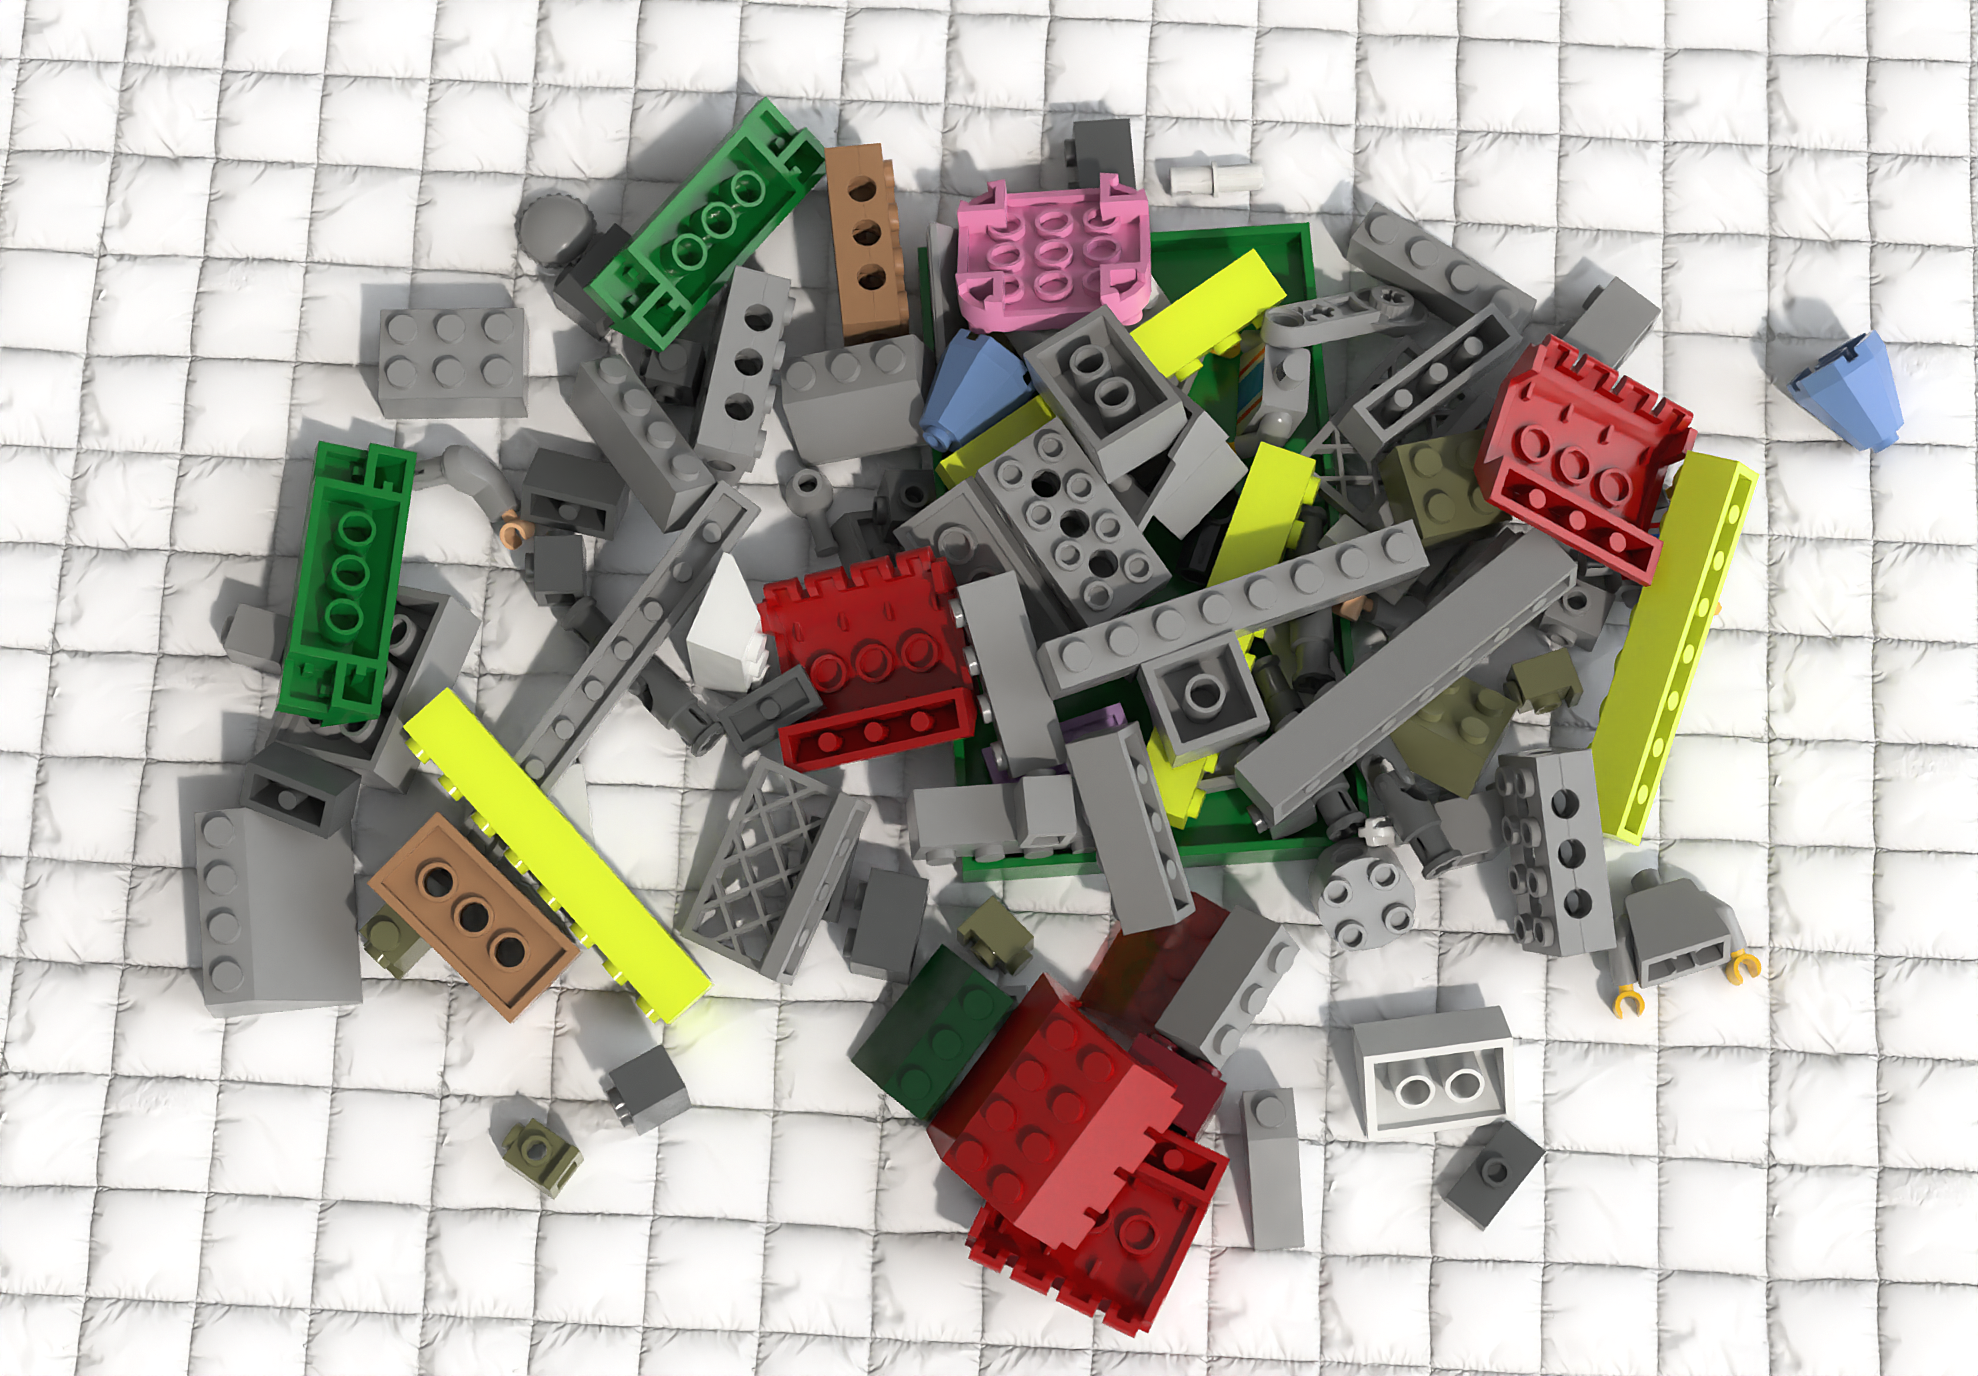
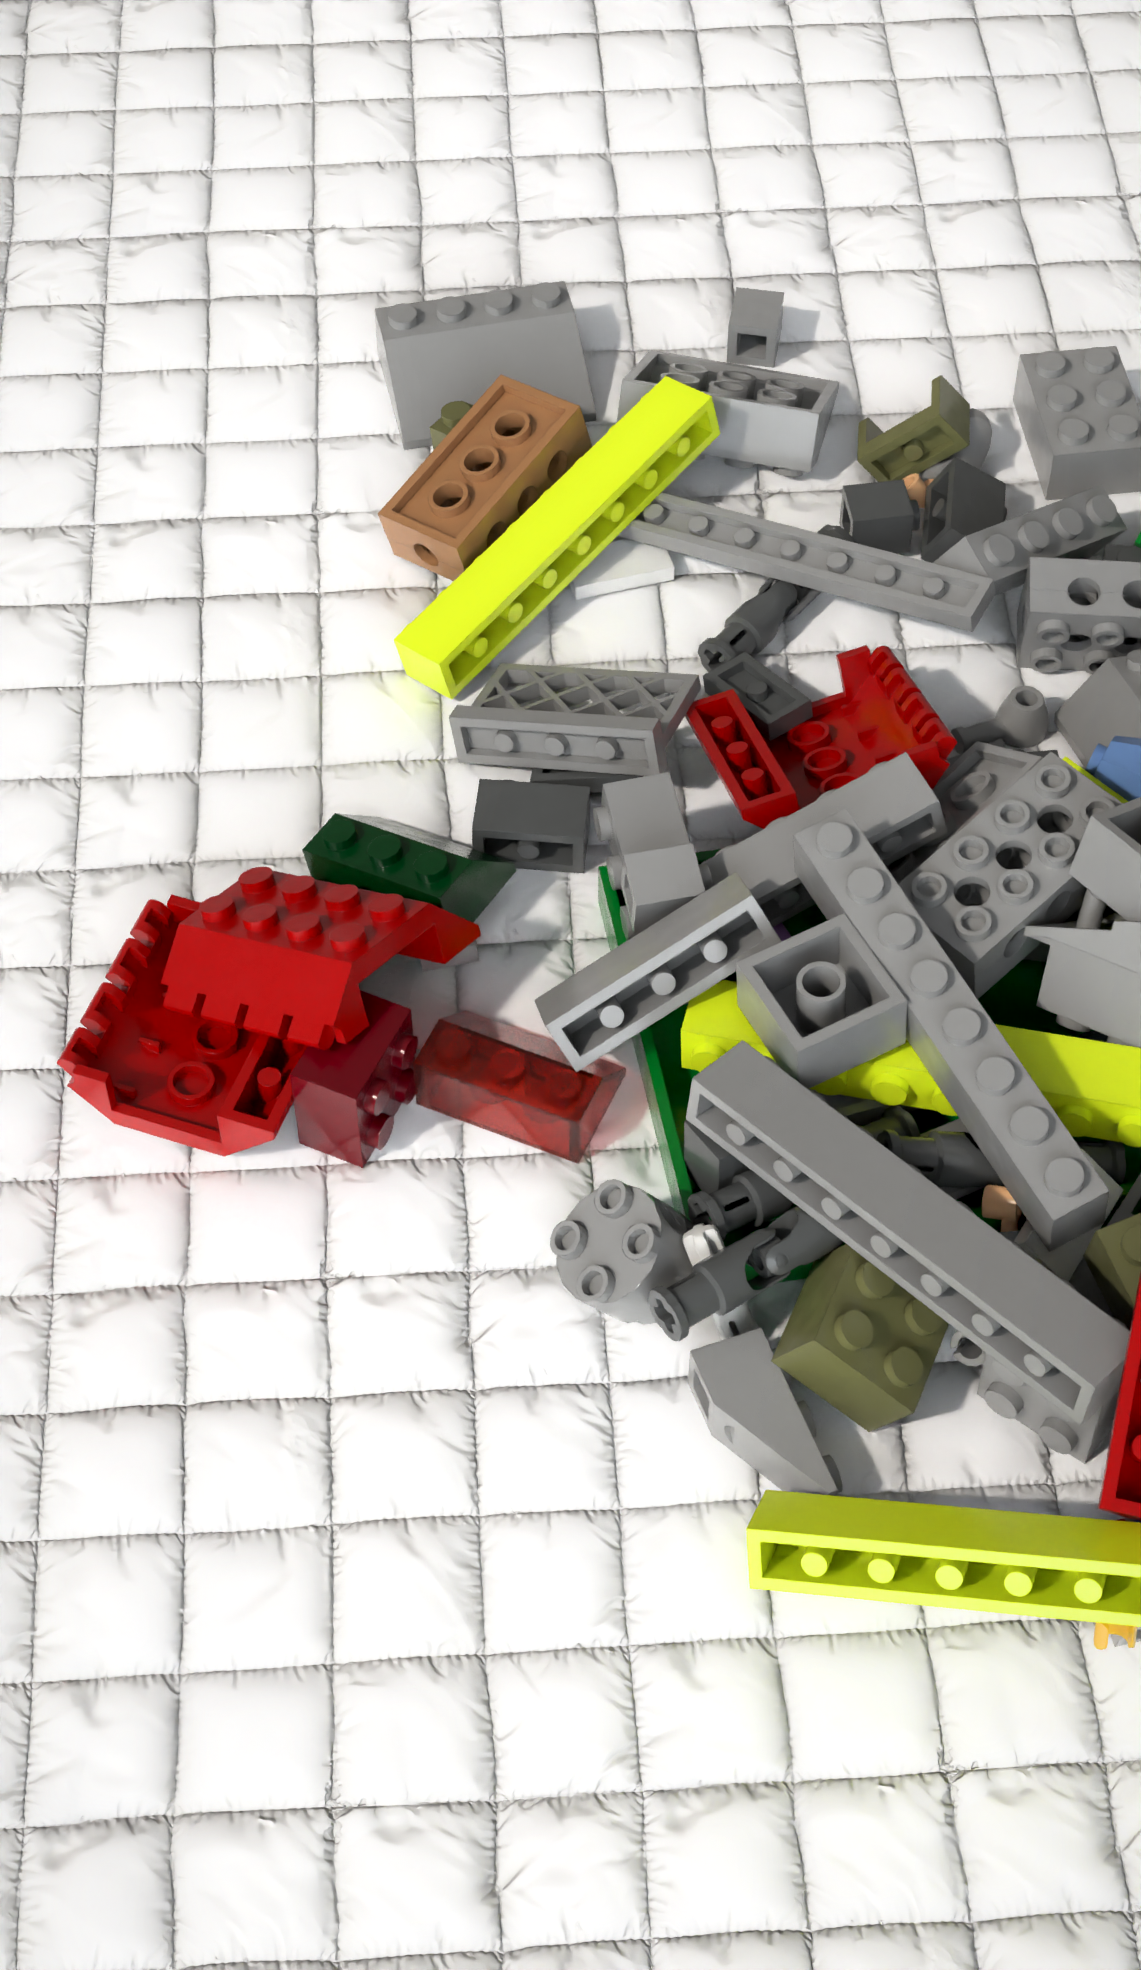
camera: 85 degrees right, 20 degrees down
(300, 790) = (600, 349): dark grey brick -> none
(346, 583) = (819, 349): green slope -> none
(466, 516) = (919, 439): none -> olive panel
(551, 1171) = (257, 570): olive brick -> none
(648, 1091) = (320, 632): dark grey brick -> none
(728, 637) = (828, 607): white slope -> none
(997, 938) = (532, 921): olive brick -> none
(1228, 987) = (481, 1118): light grey slope -> none
(1272, 1168) = (286, 1208): light grey slope -> none
(1435, 1072) = (415, 1373): white slope -> none
(1494, 1175) = (290, 1461): dark grey plate -> none
(1543, 683) = (958, 1458): olive brick -> none
(1567, 847) = (663, 1469): light grey brick -> none
(1577, 616) = (1064, 1480): light grey brick -> none
(1672, 934) = (630, 1635): light grey torso -> none

